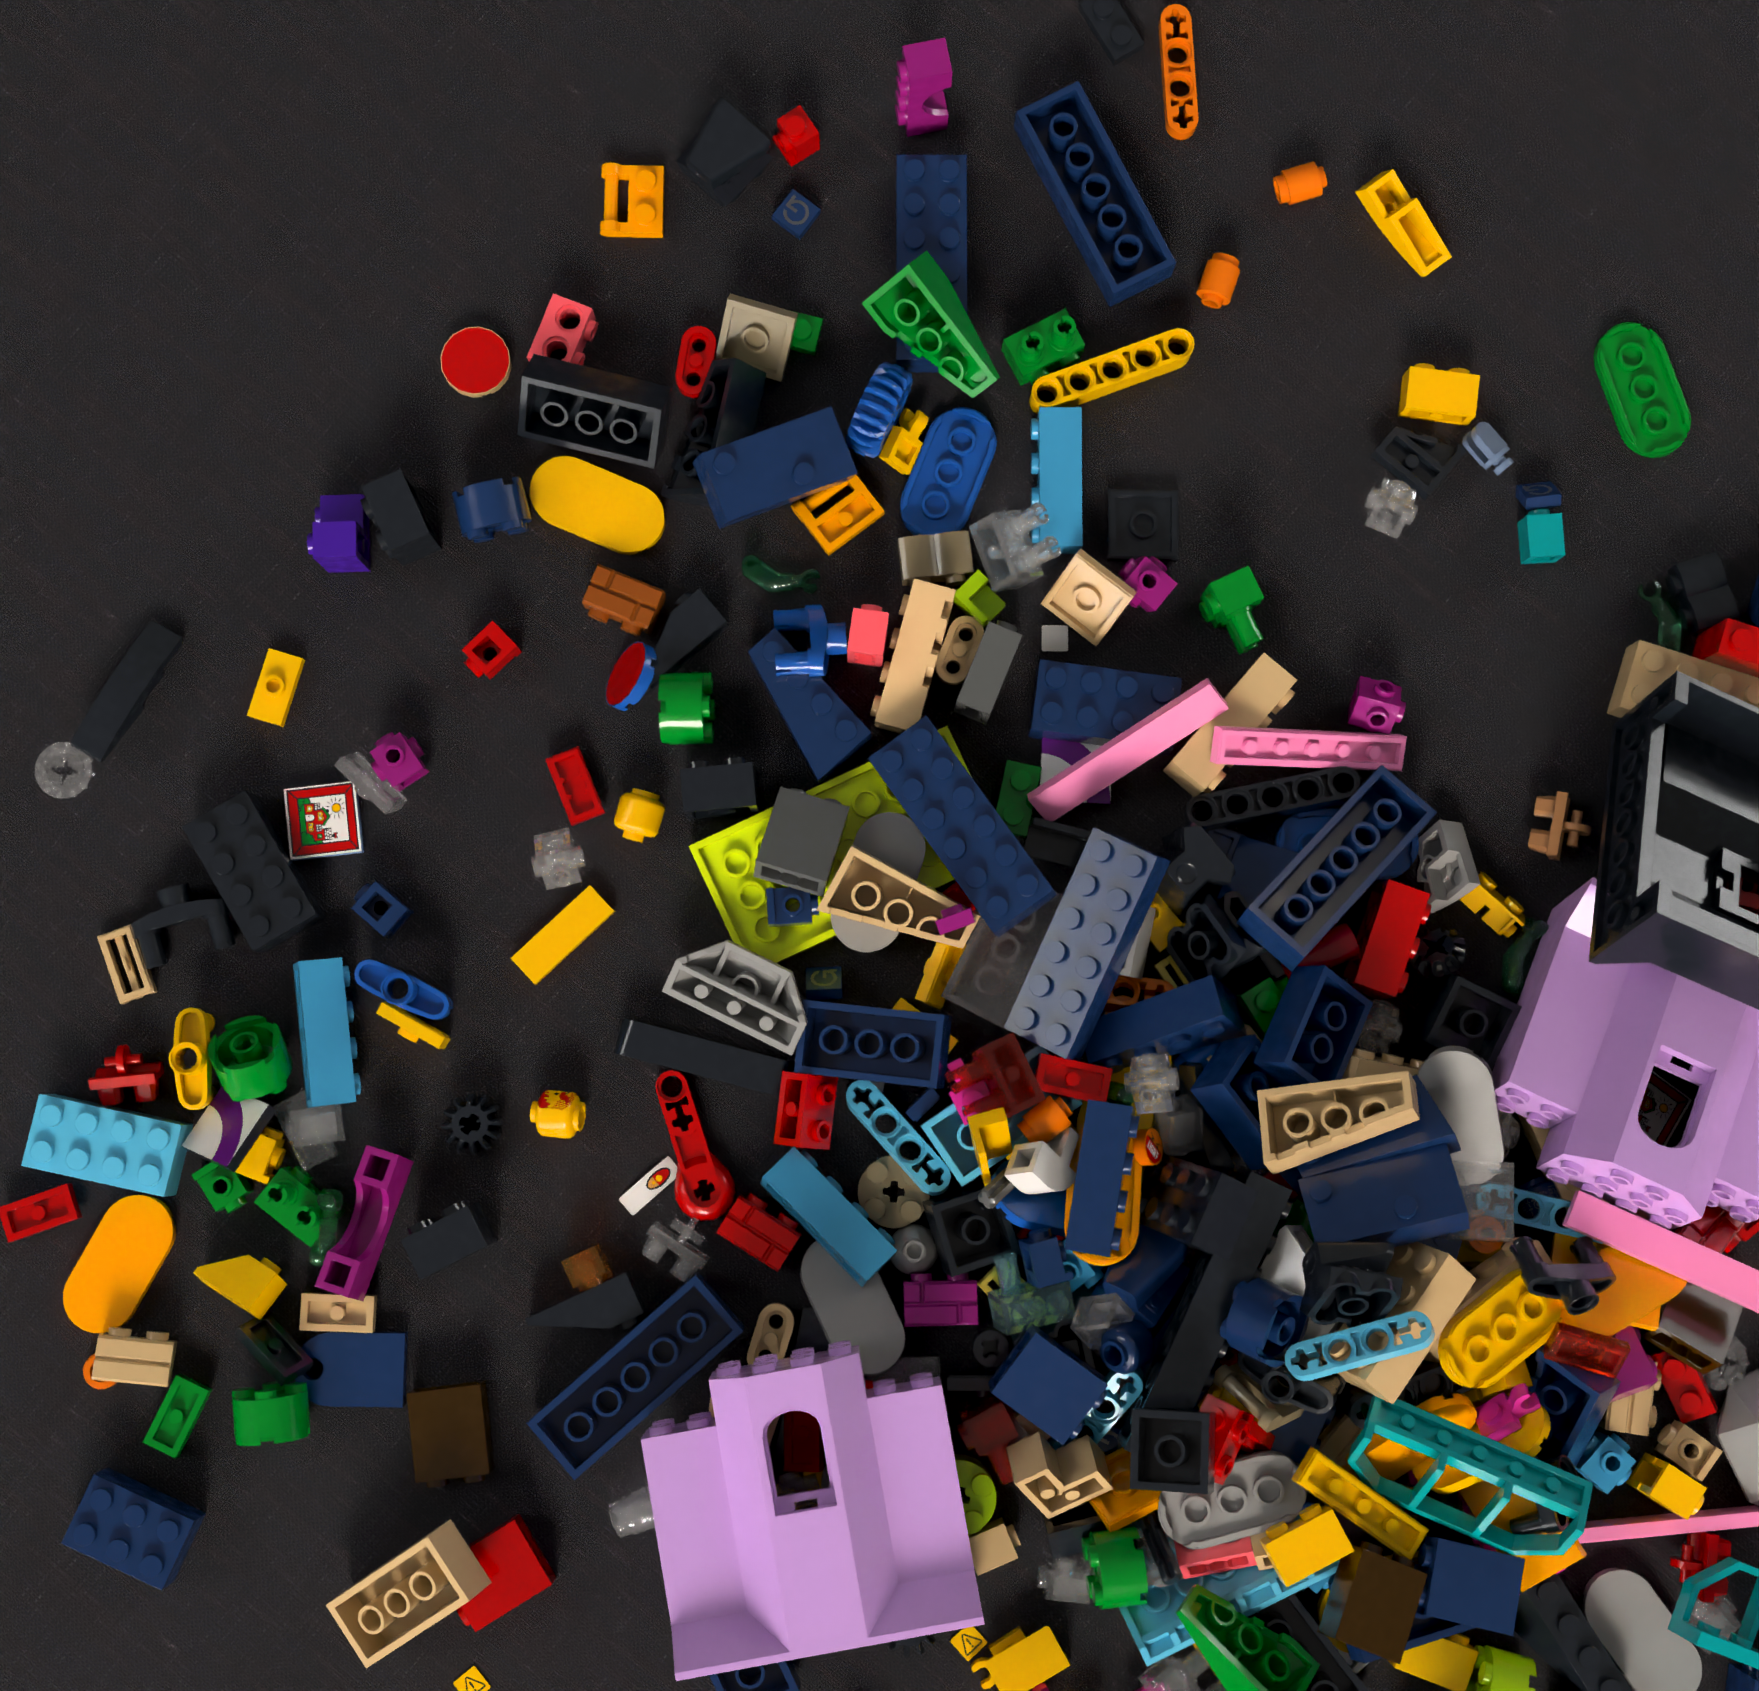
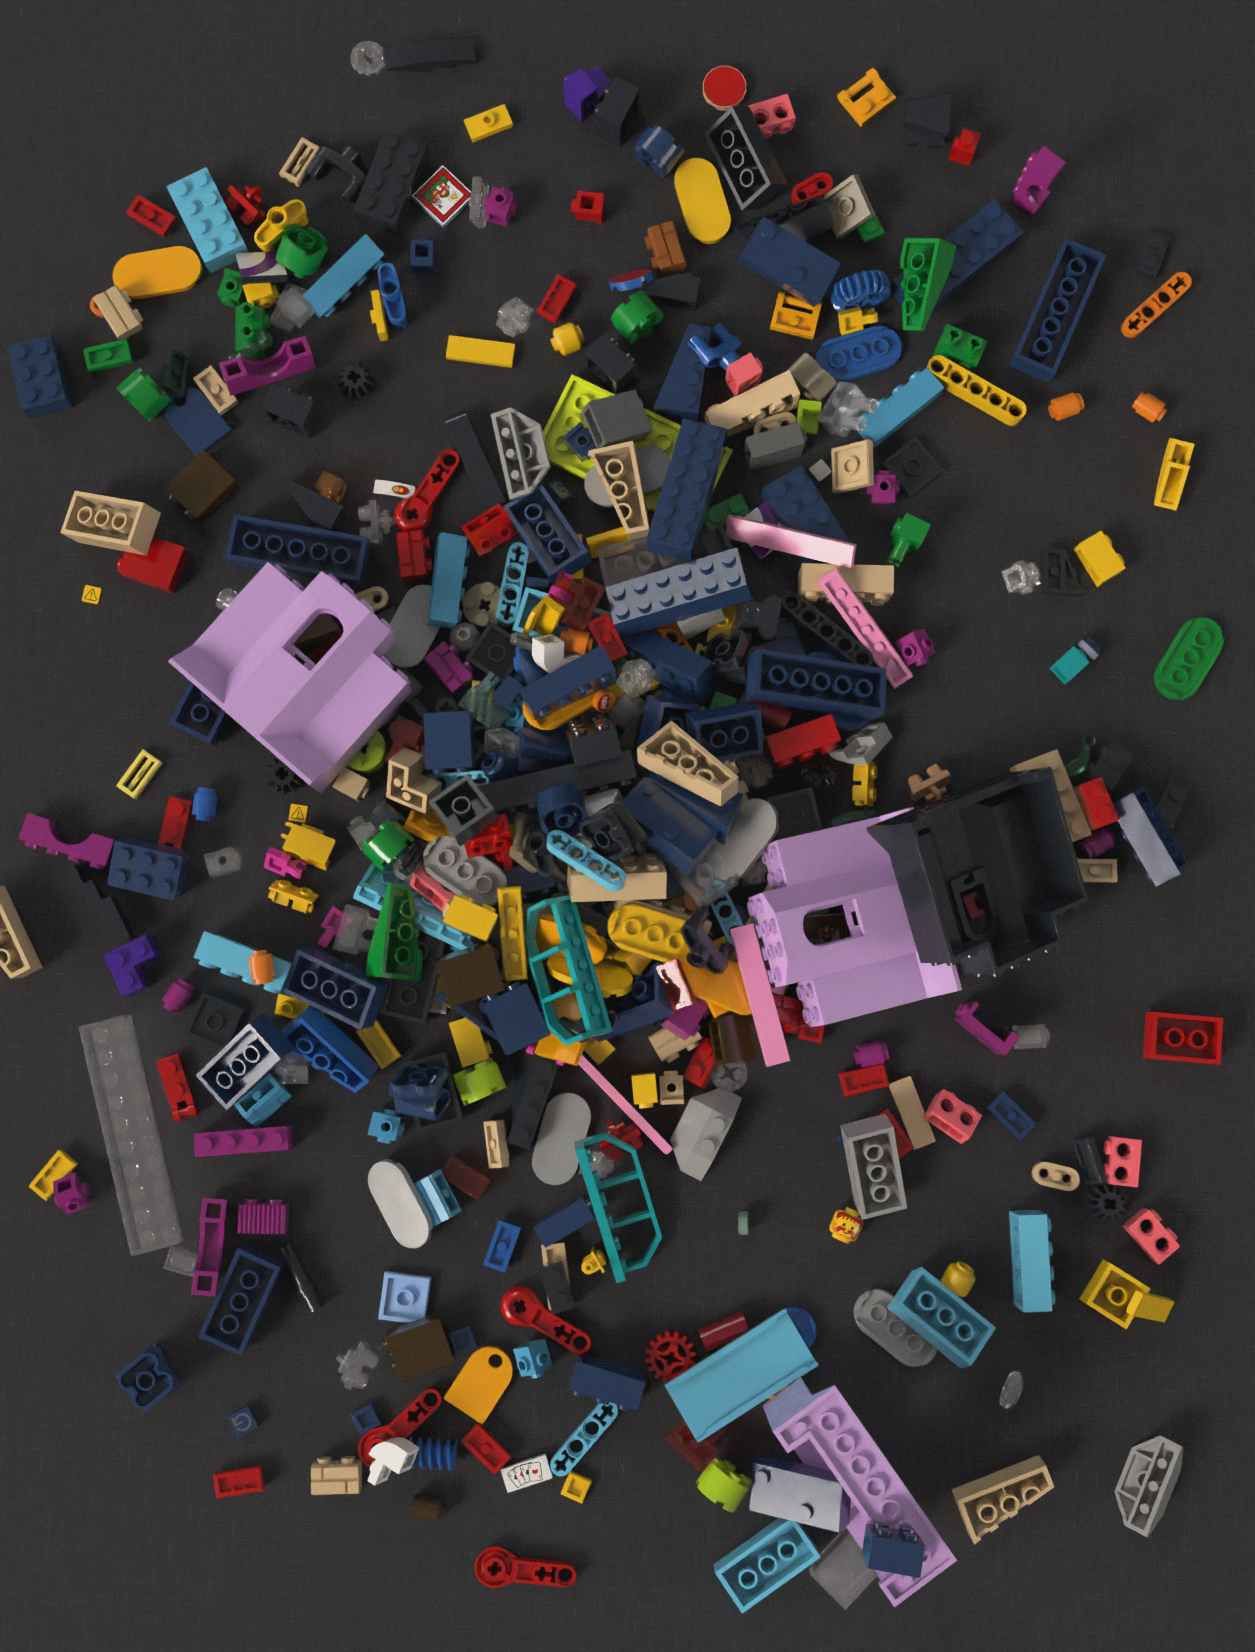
camera: 55 degrees right, 0 degrees up
(245, 1282) = (195, 335): yellow slope -> none
(558, 1114) = (392, 416): yellow head -> none
(772, 581) = (734, 312): clear green arm -> none
(796, 214) = (926, 179): dark blue tile -> none
(954, 918) = (637, 515): magenta plate -> none
(1487, 447) = (1093, 604): sand blue arm -> none
(1501, 1414) = (611, 969): dark pink plate -> none
(1606, 1462) = (623, 1050): dark azure brick -> none

